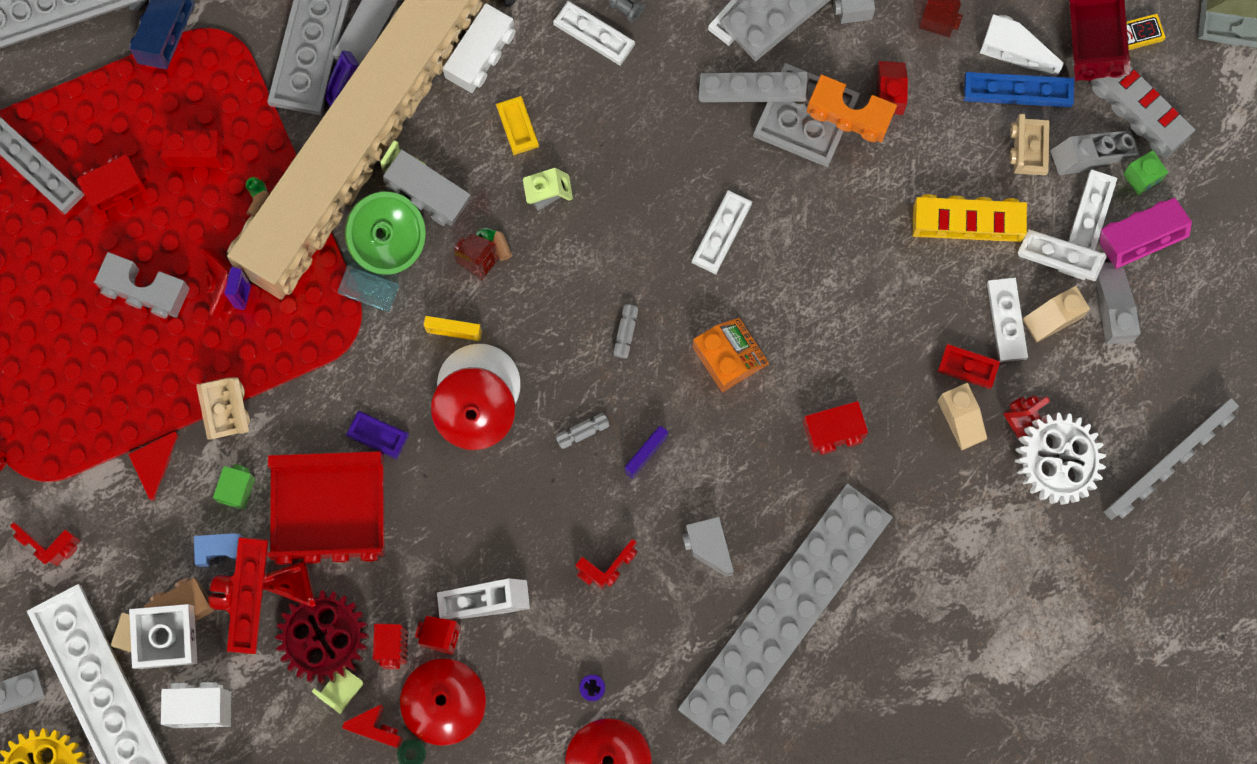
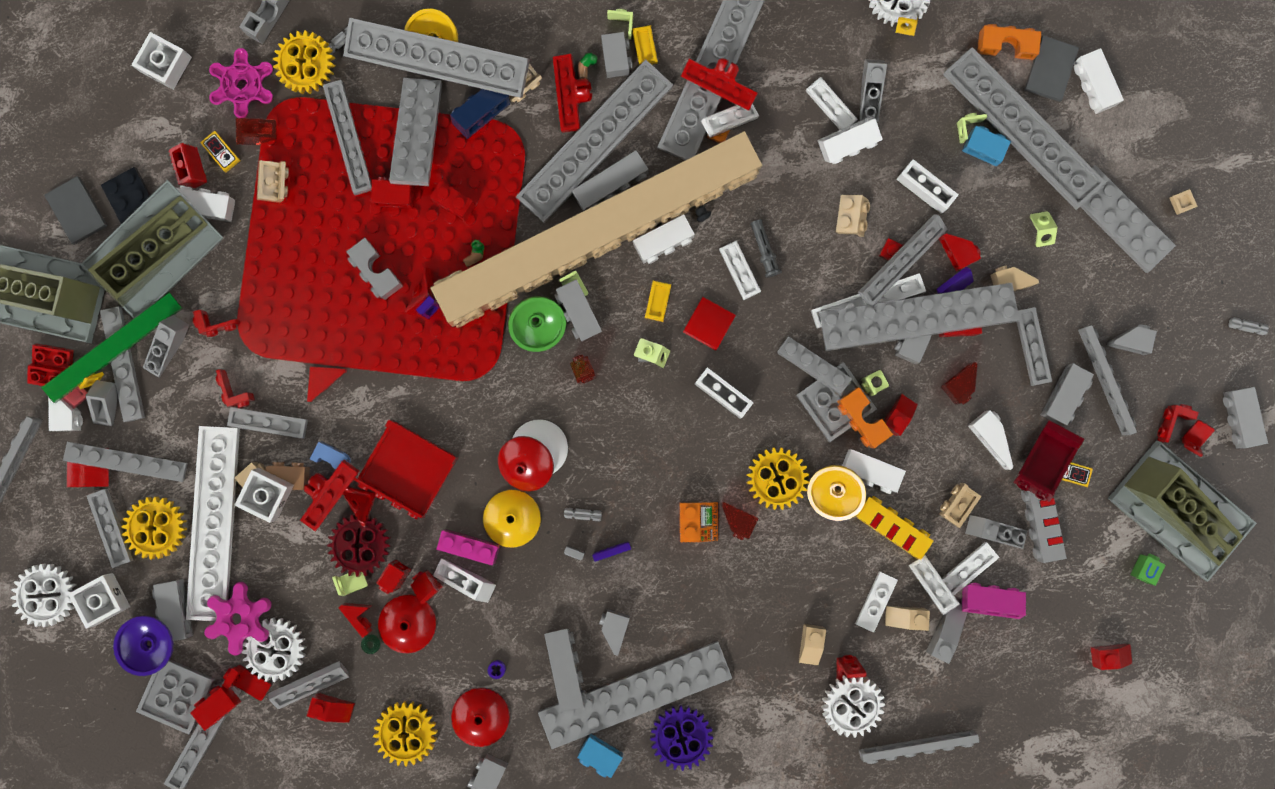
camera: 30 degrees right, 10 degrees up
(98, 96) = (415, 132): none -> light grey plate
(113, 555) = (267, 422): none -> light grey plate
(196, 707) = (262, 544): white brick -> none
(223, 407) = (379, 373): tan bracket -> none
(234, 486) = (360, 424): bright green brick -> none
(342, 73) = (567, 210): dark purple tile -> none
(368, 288) = (508, 351): clear light blue plate -> none
(377, 435) = (461, 442): dark purple tile -> none
(453, 328) = (543, 406): yellow tile -> none
(463, 554) = (468, 547): none -> dark pink brick
(499, 240) = (602, 366): medium nougat arm -> none
(502, 508) = (525, 514): none -> yellow dish
(589, 573) = (535, 604): red bracket -> none
(595, 113) = (709, 323): none -> red slope
(601, 482) = (573, 552): none -> light grey tile
(625, 331) = (645, 469): light grey axle -> none
(664, 181) = (724, 393): none -> white brick
(679, 631) = (565, 671): none -> light grey brick
(722, 232) = (740, 443): white tile -> none
(778, 322) = (739, 521): none -> clear red slope
(790, 713) = (600, 756): none -> dark azure brick
(808, 225) = (761, 486): none -> yellow gear
(834, 71) = (868, 386): none -> yellowish green bracket
(835, 427) = (732, 605): red brick -> none
(859, 647) = (698, 732): none -> dark purple gear
(880, 234) = (836, 503): none -> yellow dish
(902, 168) = (874, 471): none -> white brick
(968, 366) = (834, 616): red plate -> none
(1018, 89) = (976, 465): blue plate -> none
(1145, 173) = (1018, 565): bright green brick -> none

